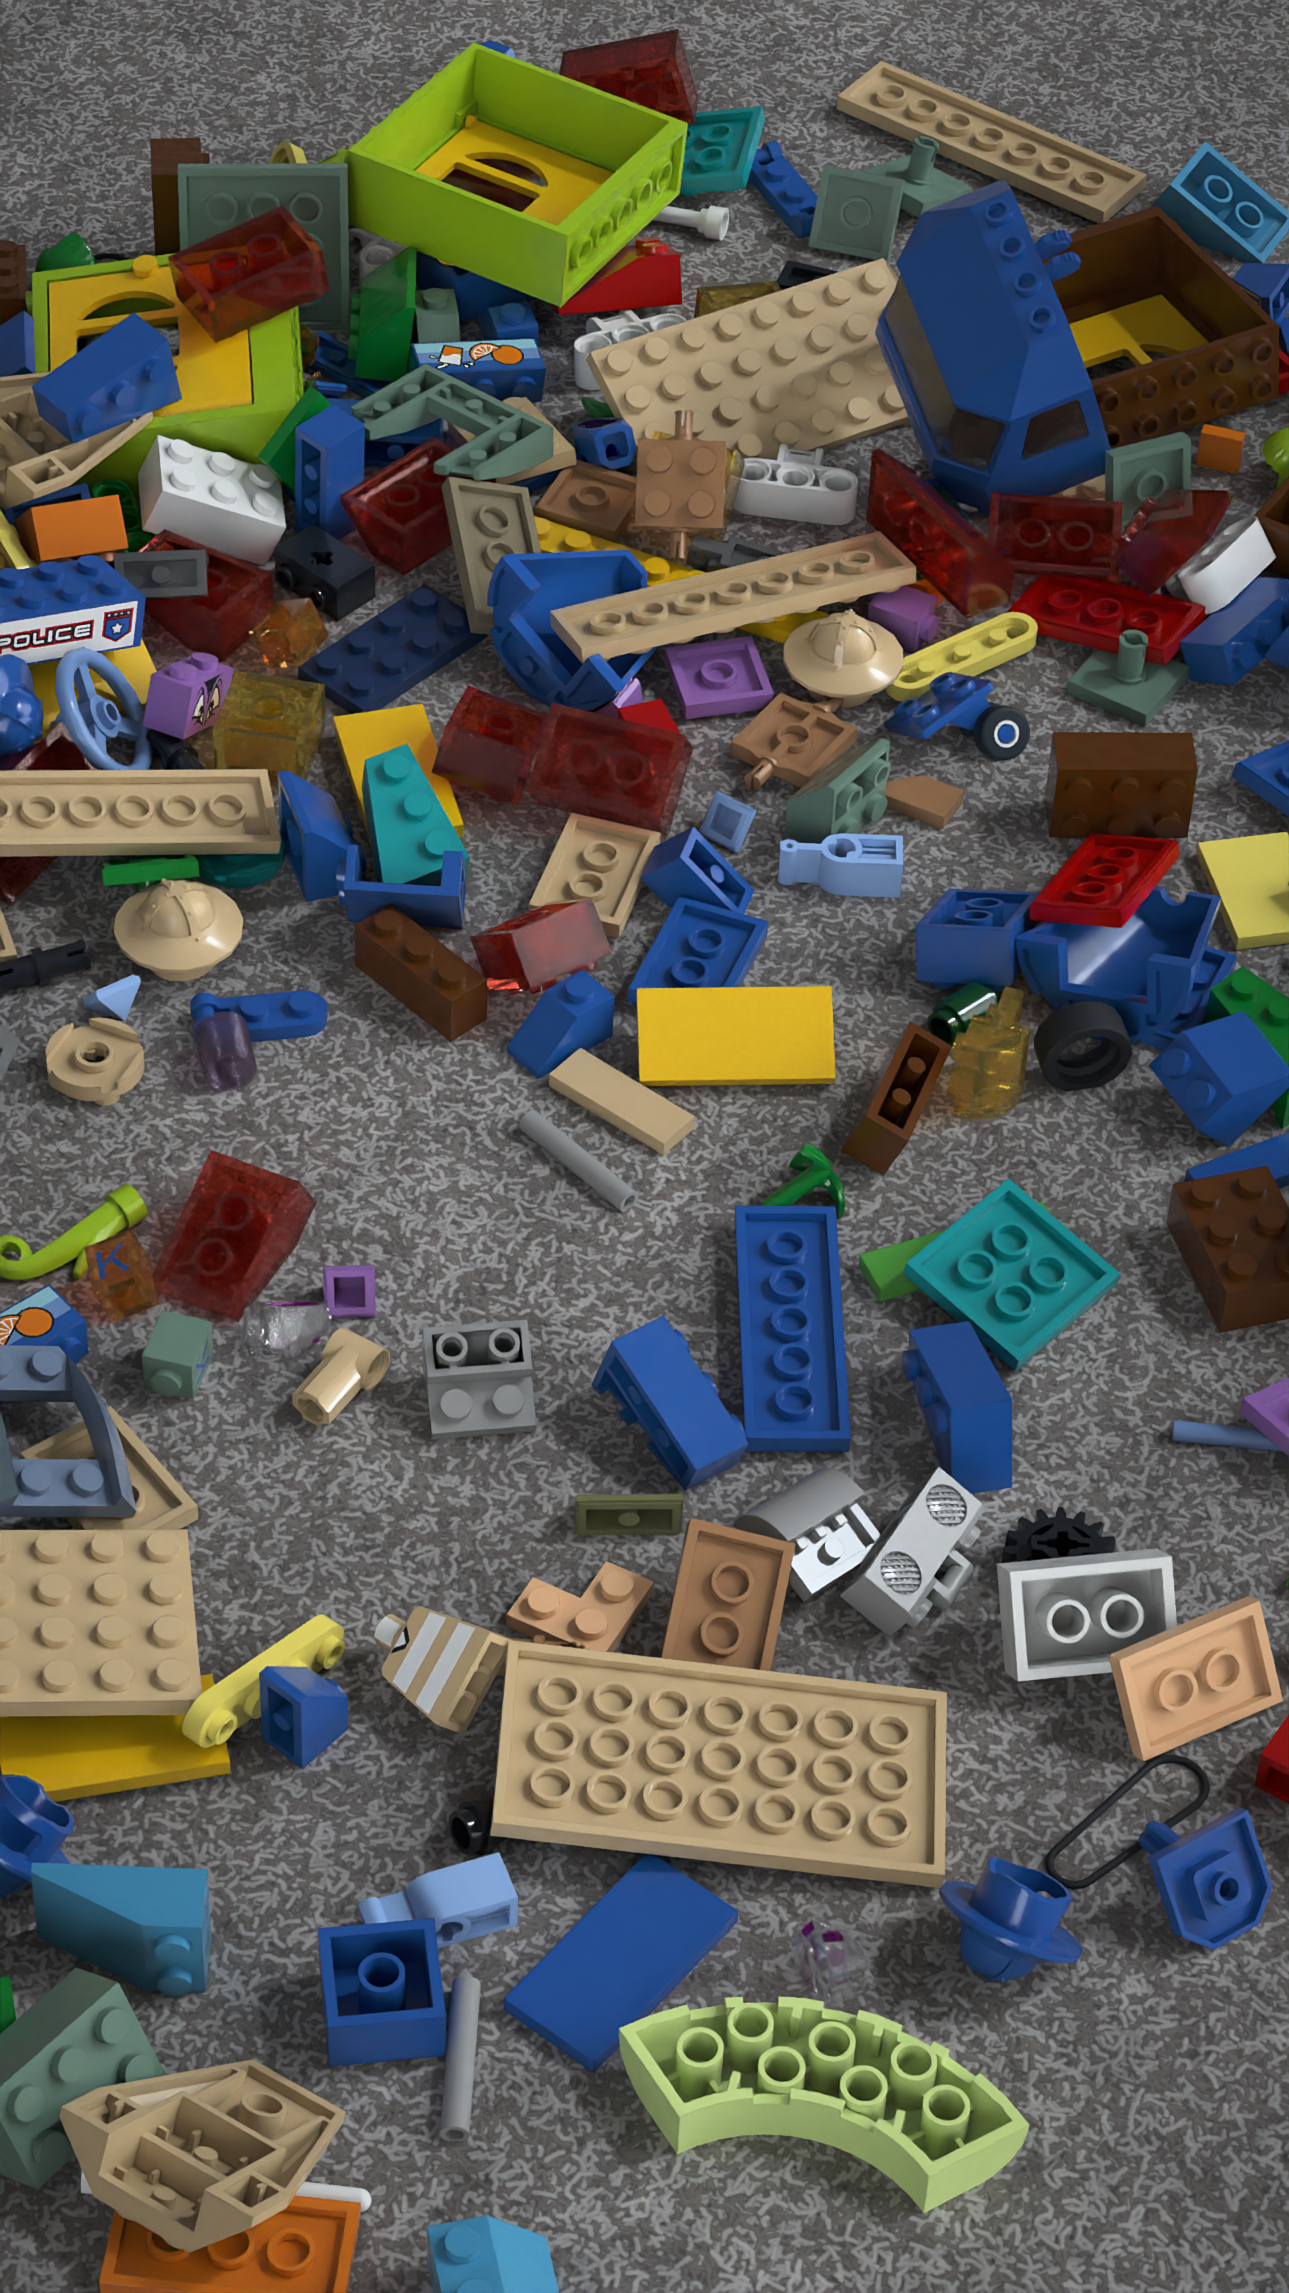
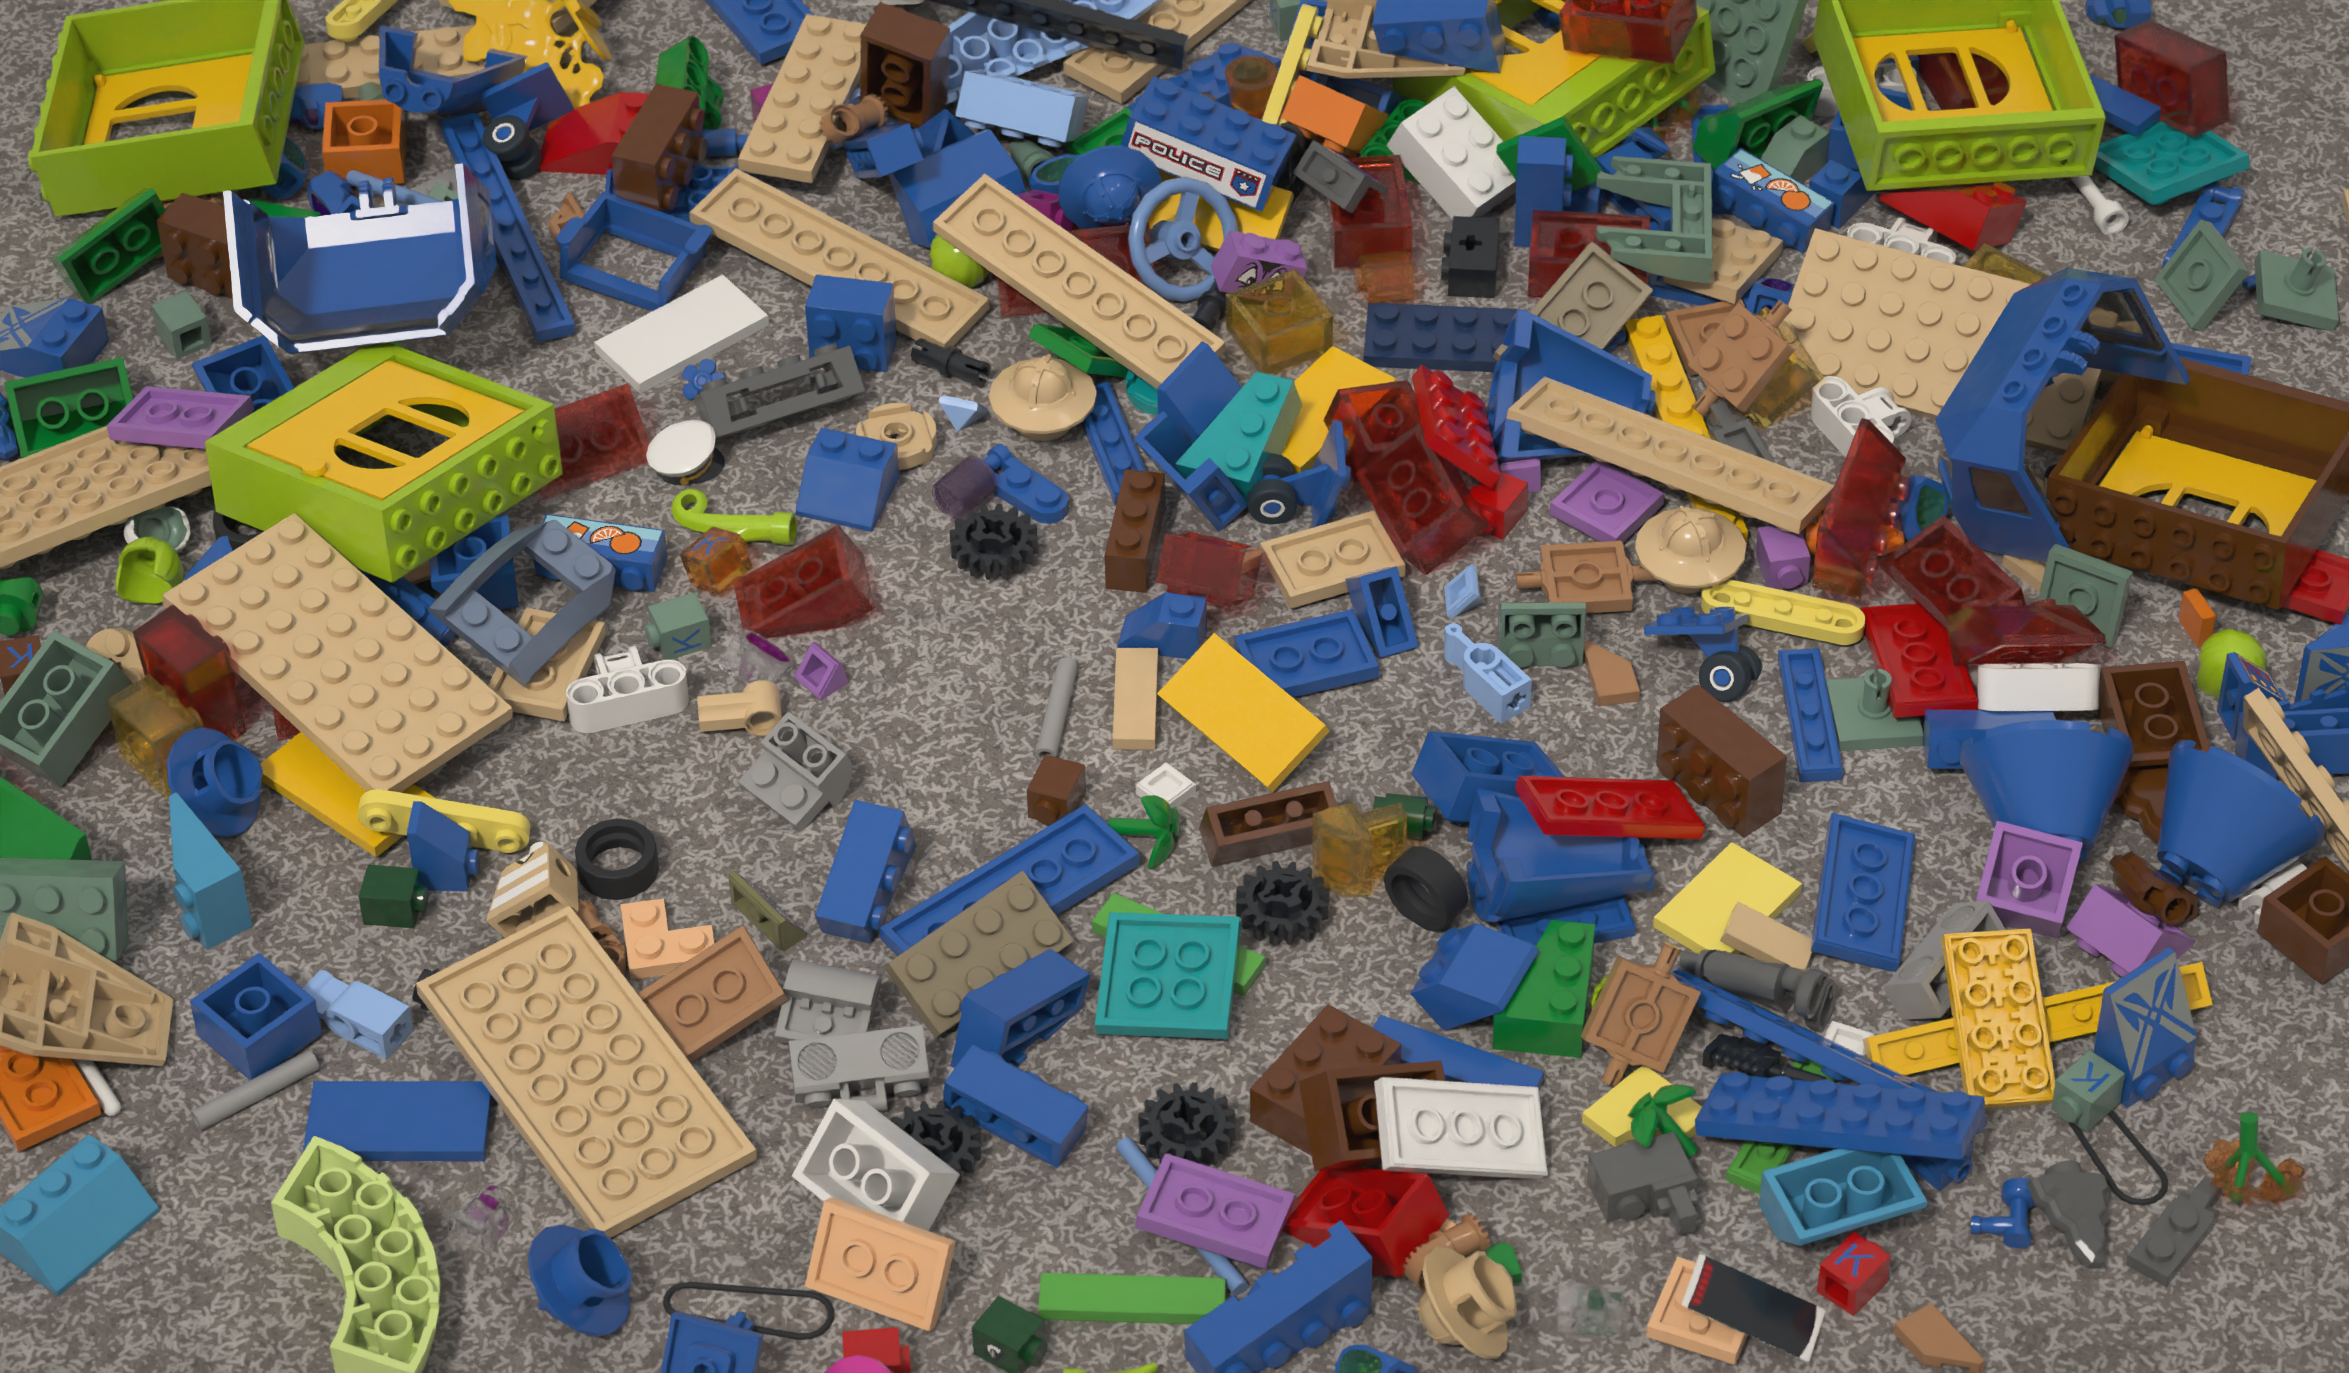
camera: 55 degrees right, 0 degrees up
(118, 1123) = (847, 479): none -> blue slope
(218, 1442) = (626, 692): none -> white piece
(296, 934) = (1111, 440): none -> blue tile
(311, 1787) = (392, 896): none -> dark green brick
(319, 1073) = (994, 541): none -> black gear
(445, 1549) = (623, 882): none -> black tyre
(502, 820) = (1281, 489): none -> blue plate
(554, 689) = (1456, 425): none -> red plate
(694, 1217) = (1055, 789): none -> reddish brown brick
(756, 1148) = (1167, 784): none -> white tile
(857, 1386) = (975, 949): none -> dark tan plate
(966, 1145) = (1282, 902): none -> black gear
(1072, 705) = (1809, 715): none -> blue tile
(1076, 1469) = (1016, 1105): none -> blue brick
(1204, 1371) = (1187, 1125): none -> black gear

